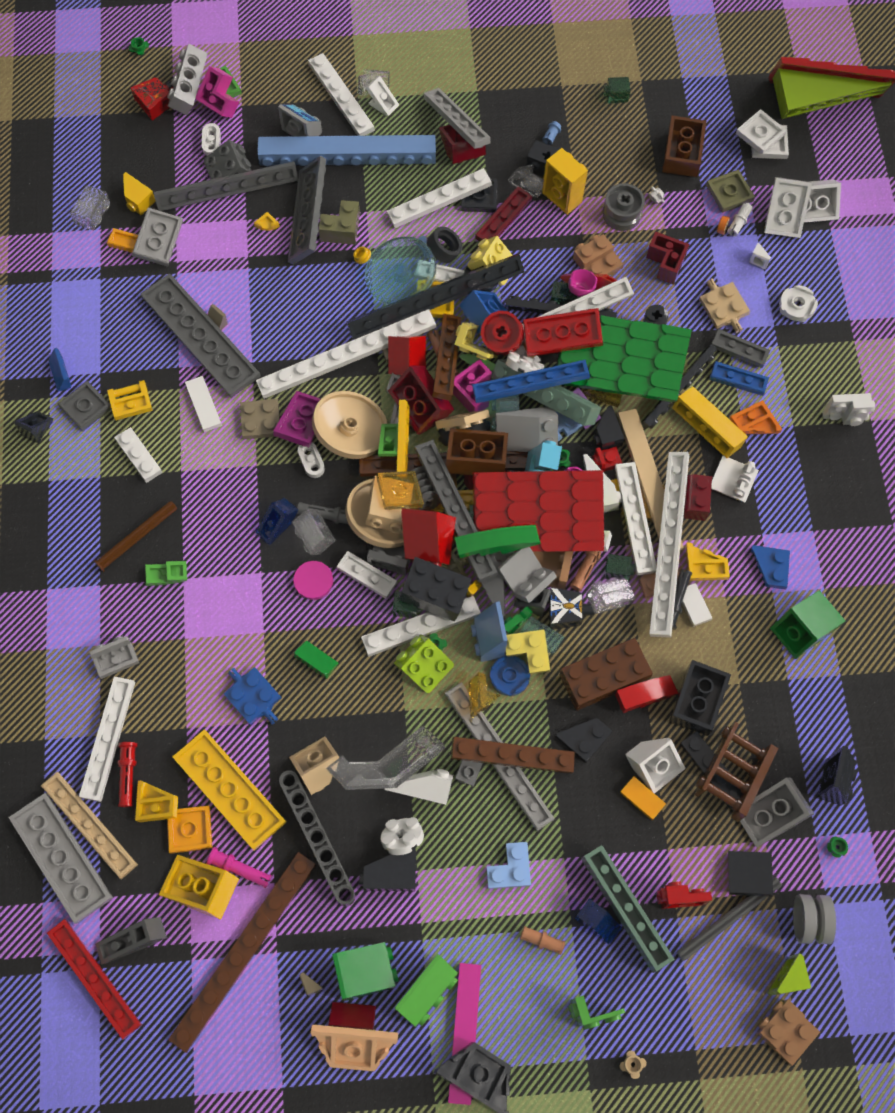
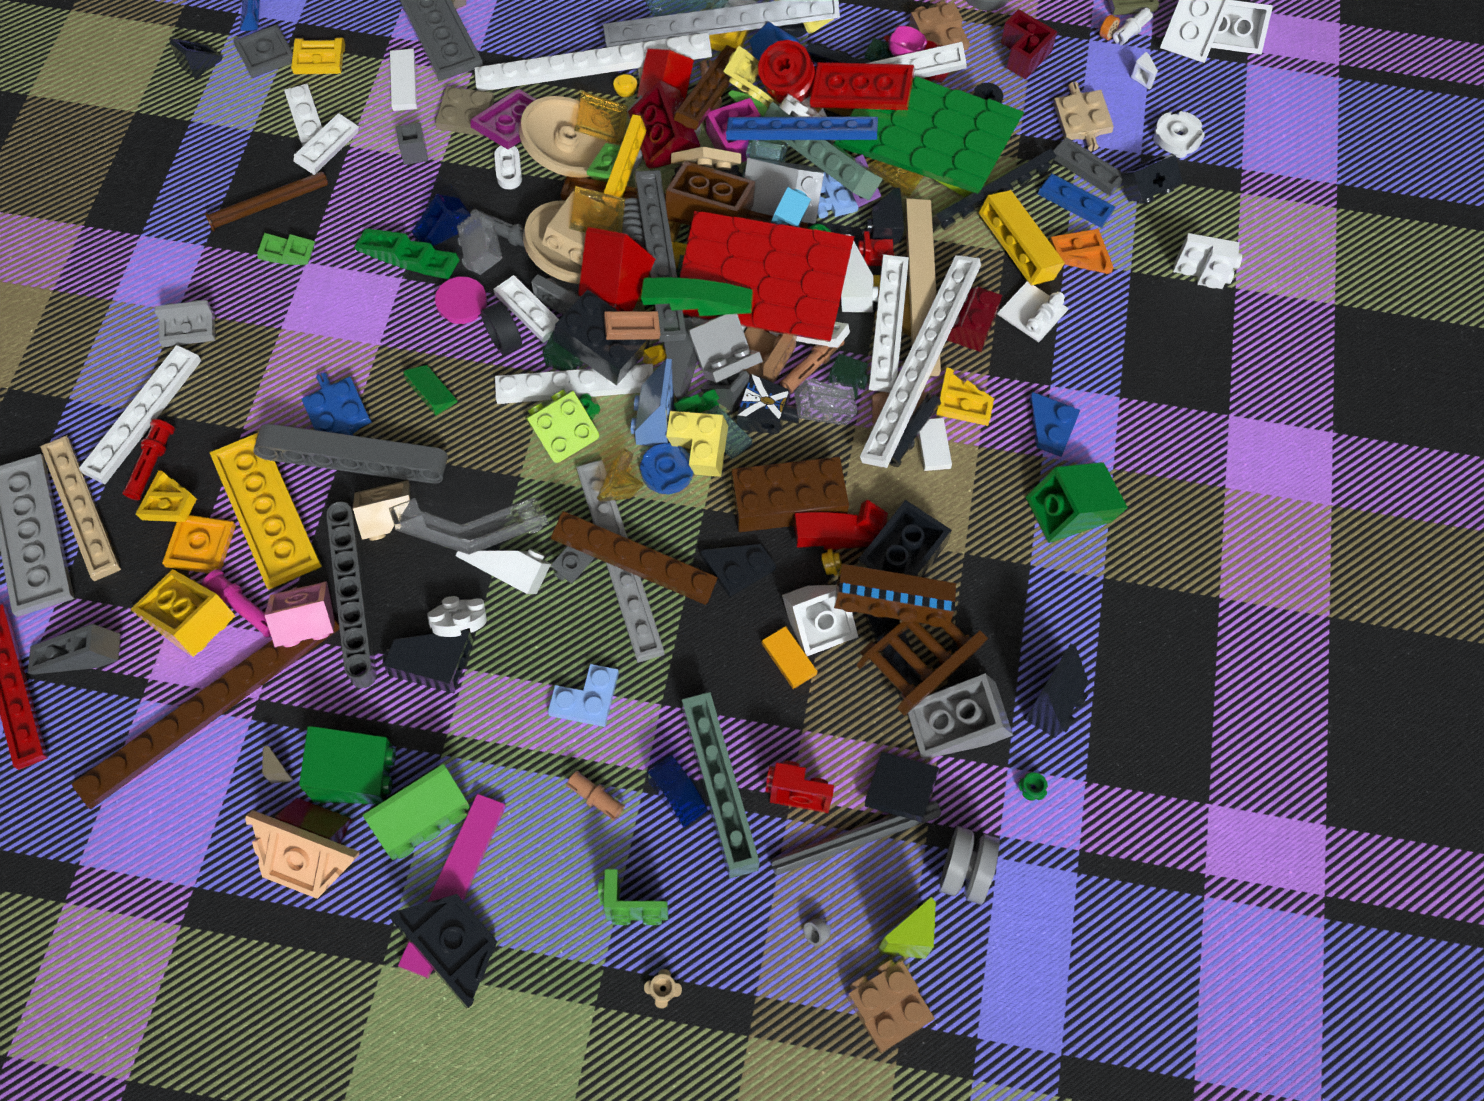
camera: 15 degrees right, 5 degrees down
(165, 477) = (326, 144): none -> white plate
(233, 460) = (412, 143): none -> dark grey brick
(258, 552) = (410, 255): none -> green slope
(278, 729) = (350, 453): none -> dark grey beam
(289, 866) = (300, 615): none -> bright pink slope
(355, 598) = (501, 328): none -> black tyre
(369, 401) = (601, 118): none -> clear yellow tile
(376, 365) = (625, 85): none -> yellow plate
(457, 577) = (631, 325): none -> nougat tile
(651, 718) = (831, 562): none -> yellow plate
(669, 676) = (872, 517): none -> red tile
(709, 739) = (895, 595): none -> reddish brown brick
(724, 999) = (811, 928): none -> light grey hinge
(790, 349) = (1152, 178): none -> black brick

